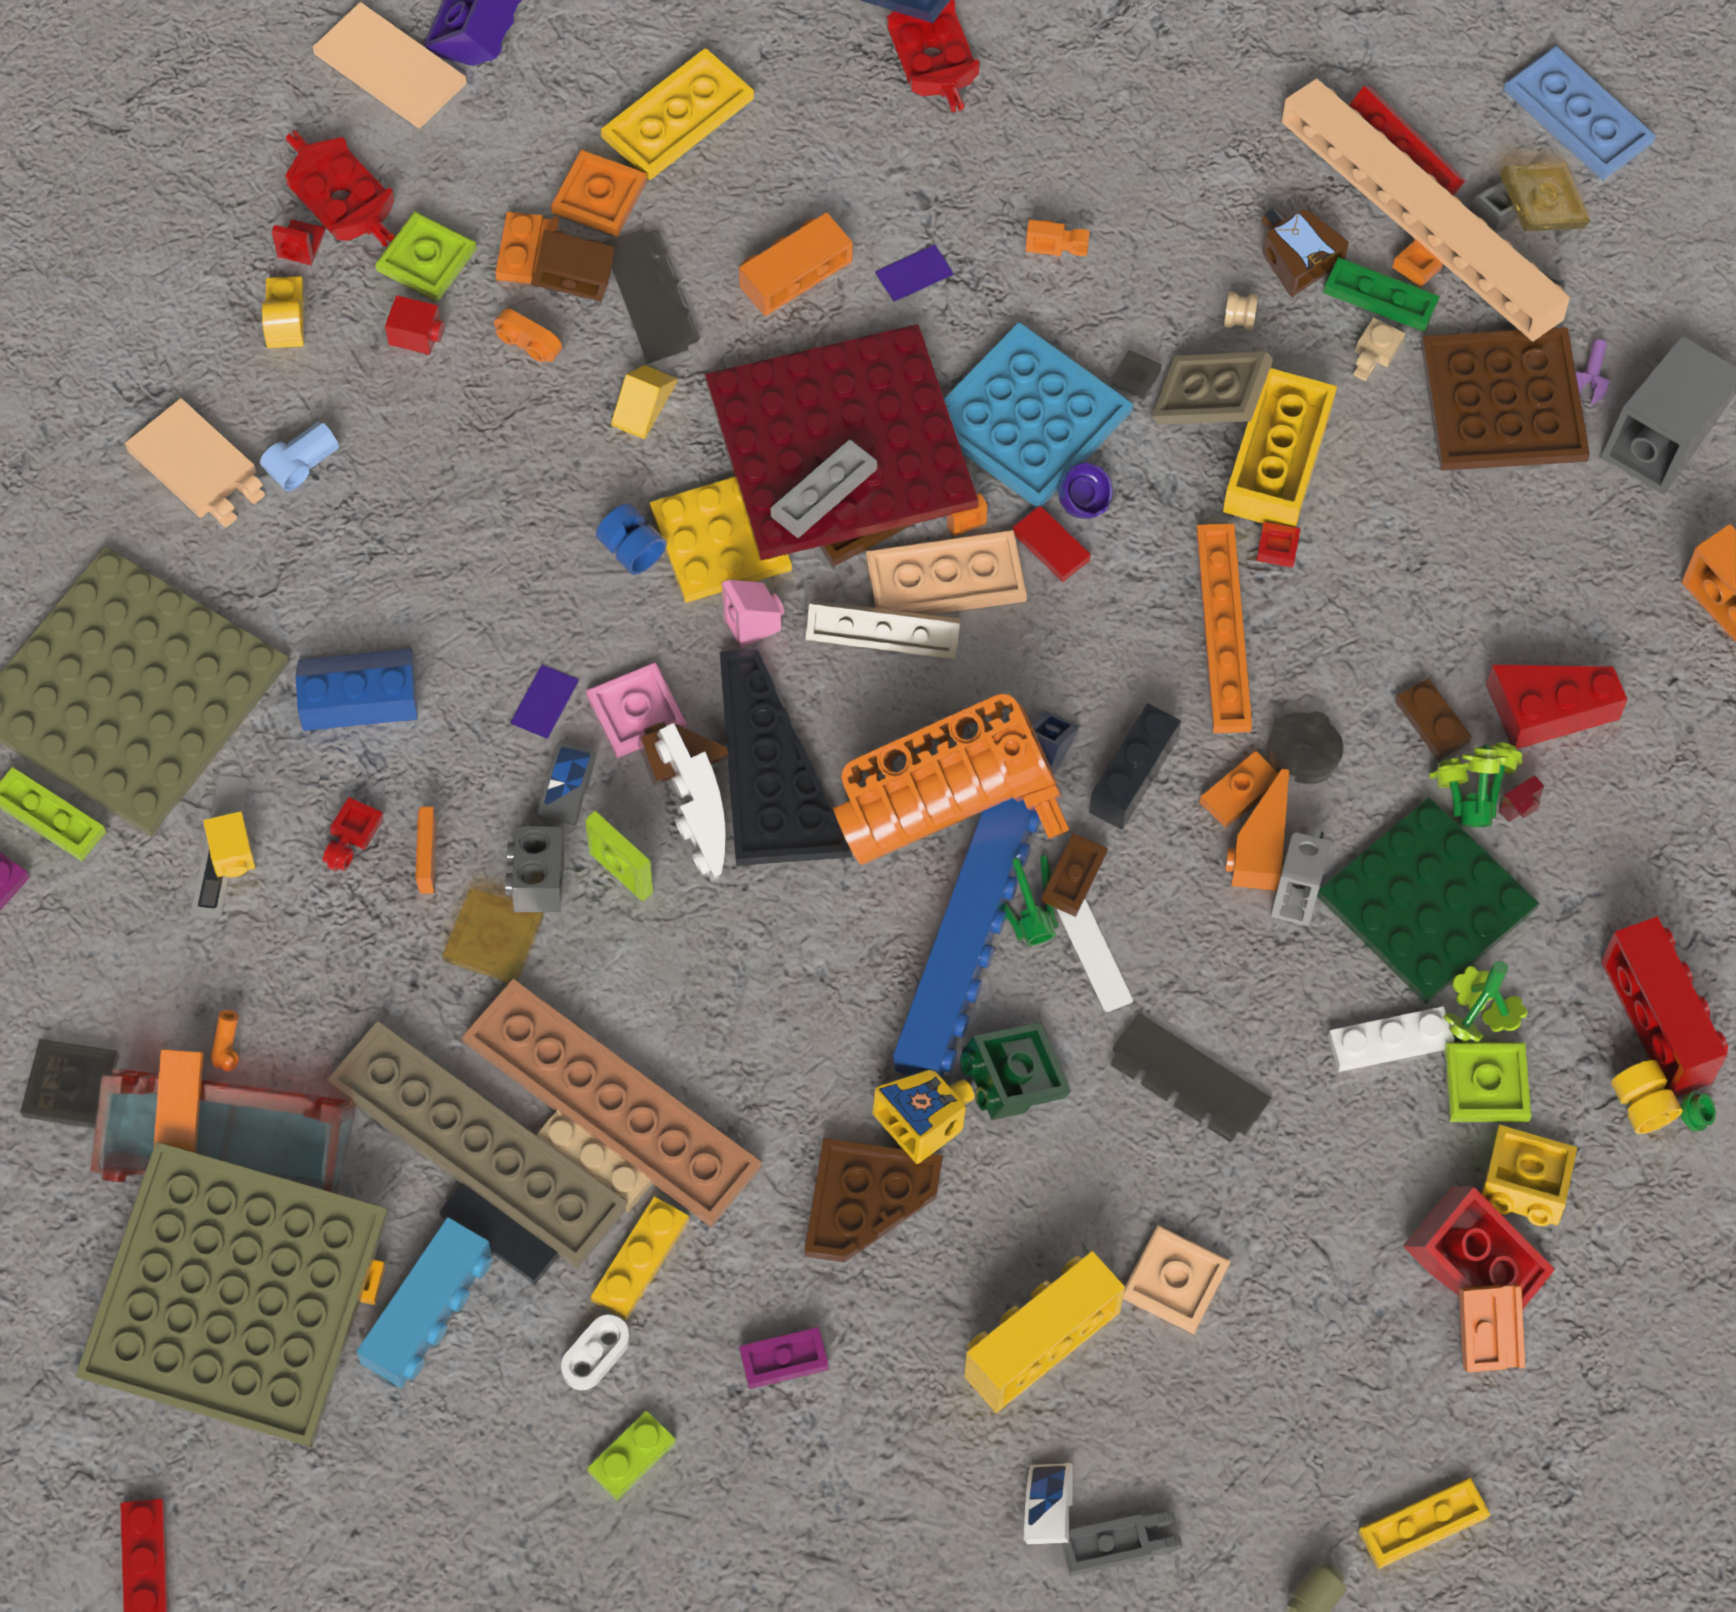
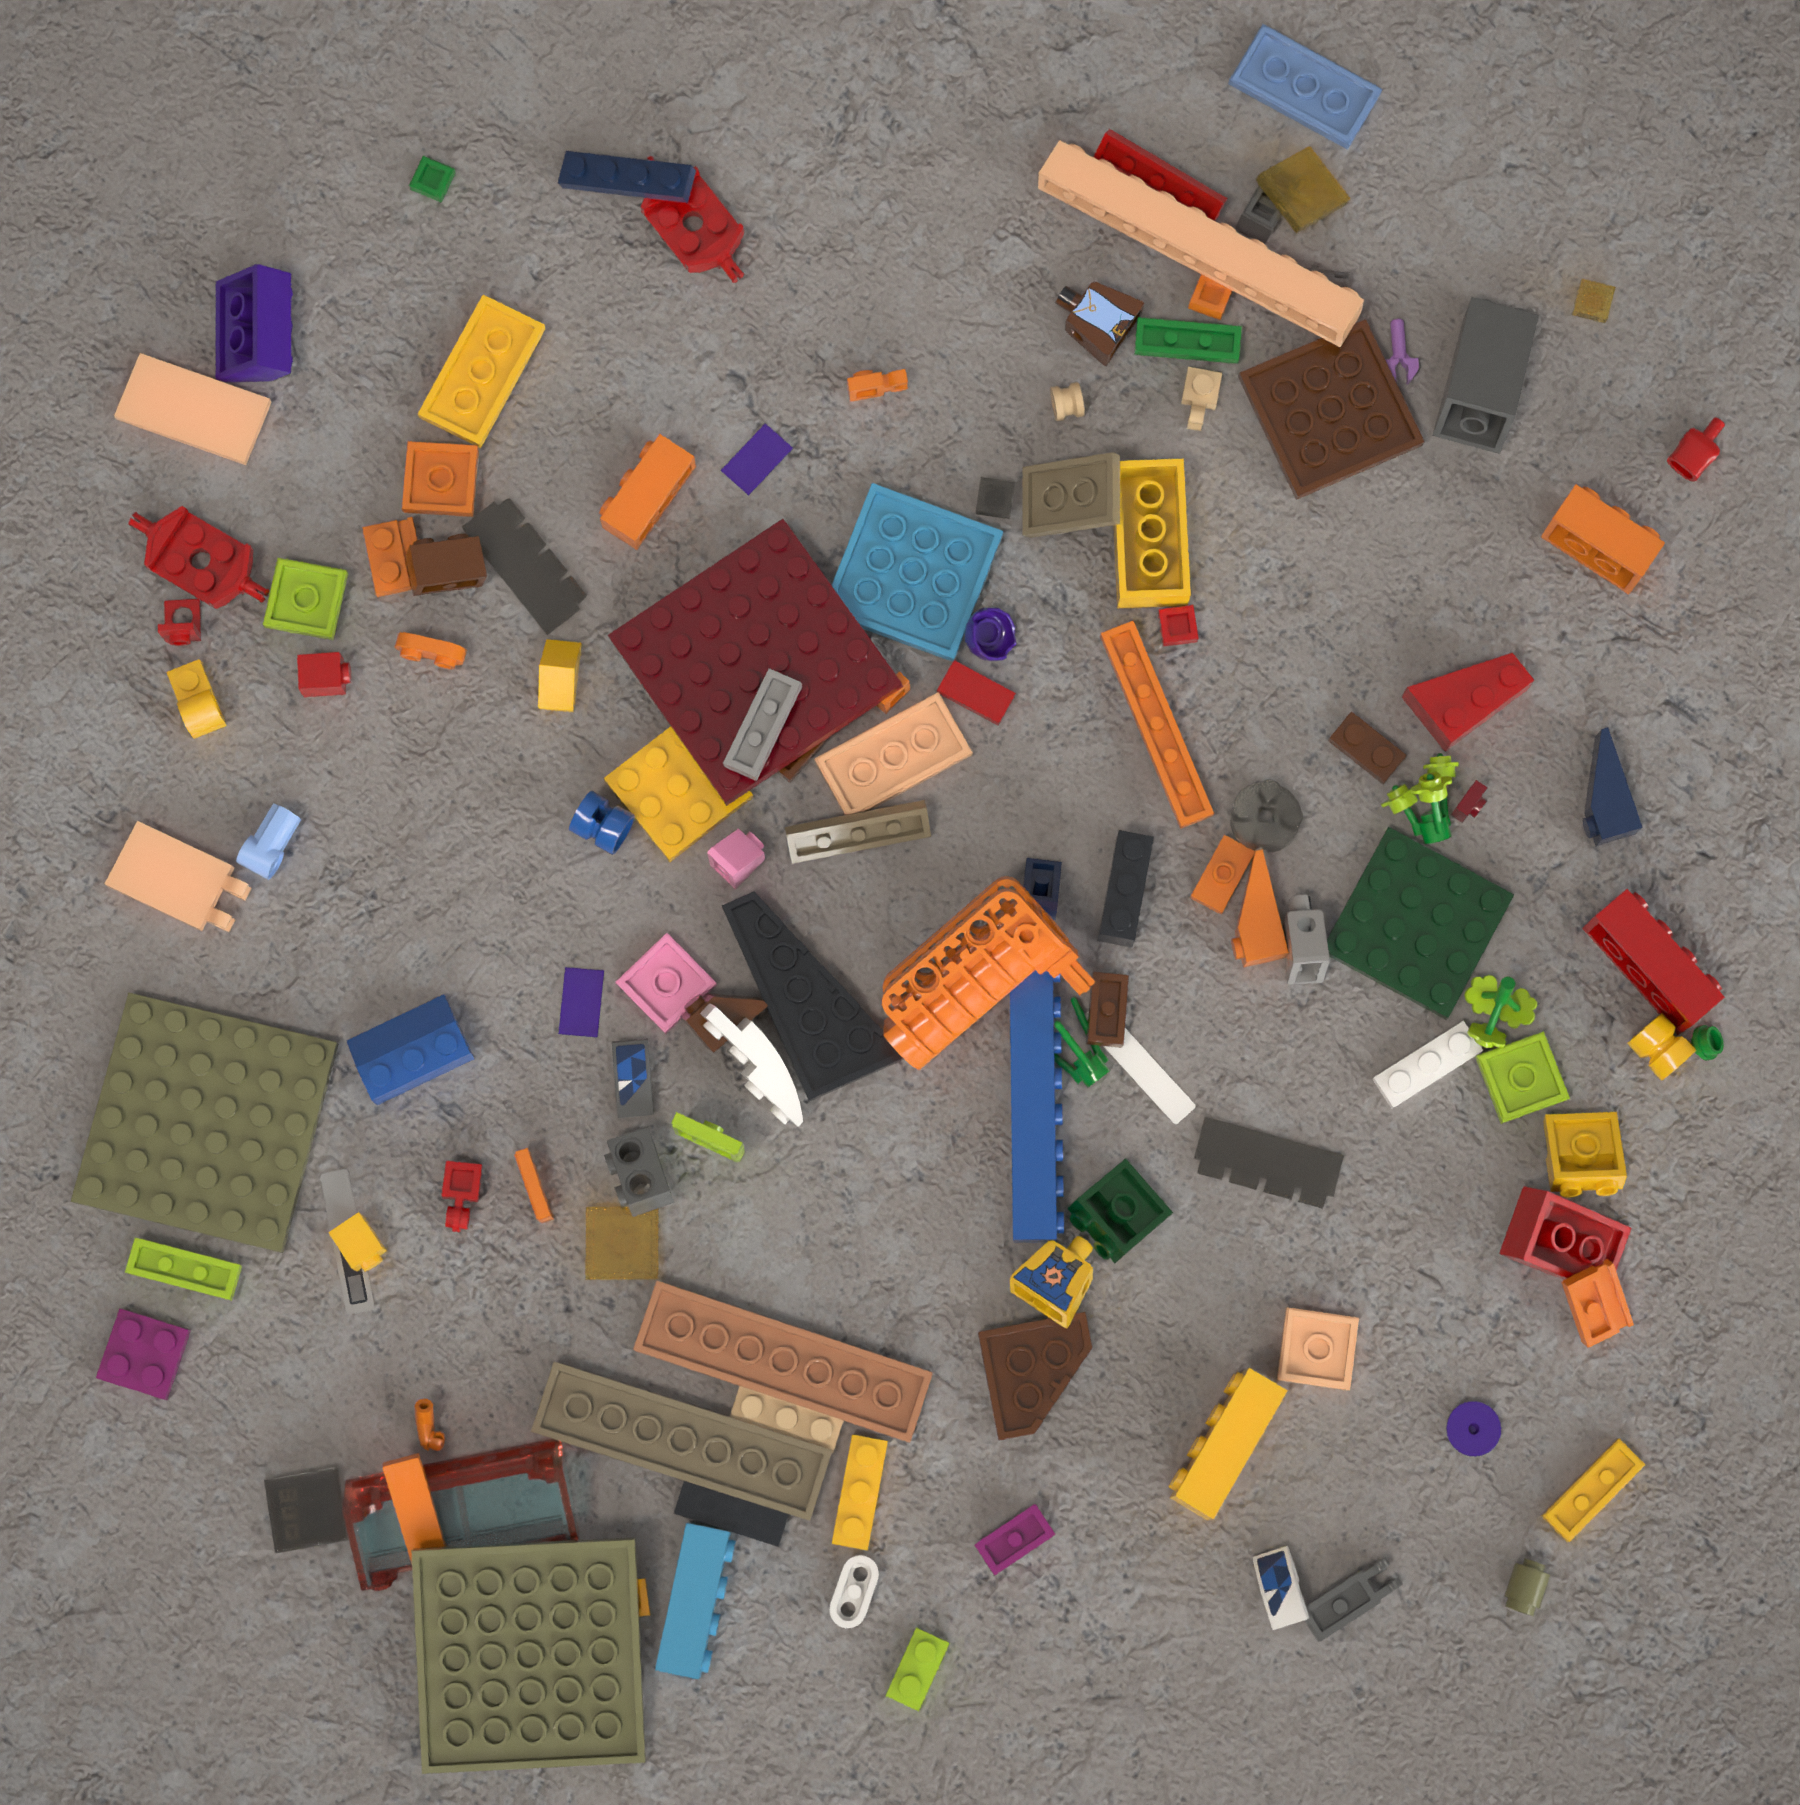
camera: 20 degrees left, 15 degrees up
(1315, 1414) = (1473, 1428): none -> dark purple piece
(1669, 850) = (1609, 802): none -> dark blue slope

